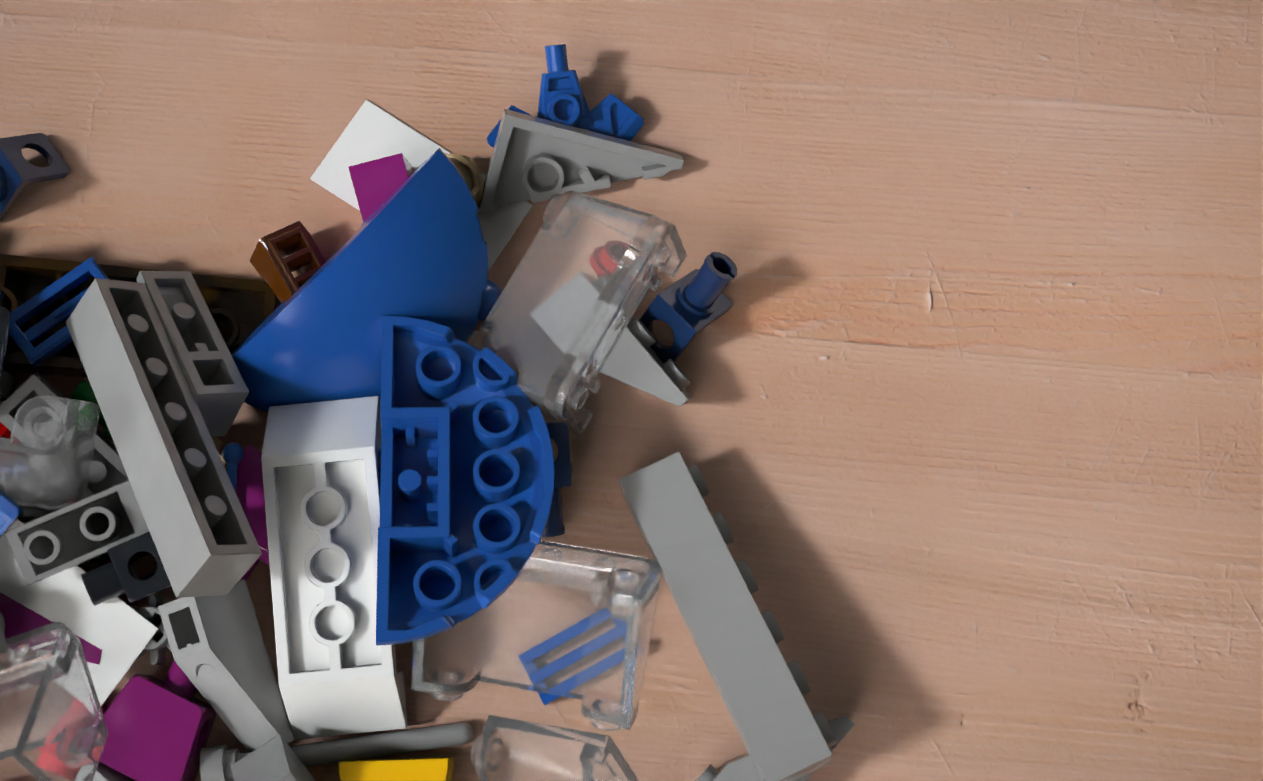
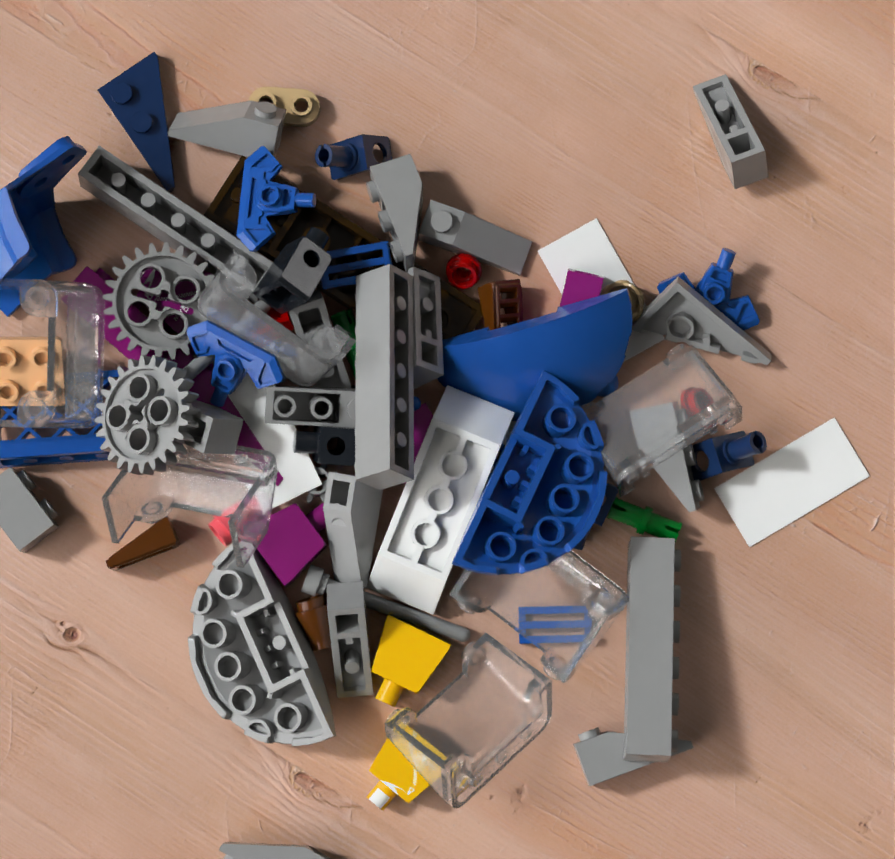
camera: 25 degrees right, 5 degrees up
(92, 200) = (400, 197): none -> light grey slope
(210, 201) = (468, 234): none -> light grey slope
(218, 262) = (460, 278): none -> red plate
(625, 450) = (644, 519): none -> green pin
(793, 303) = (791, 482): none -> white sticker

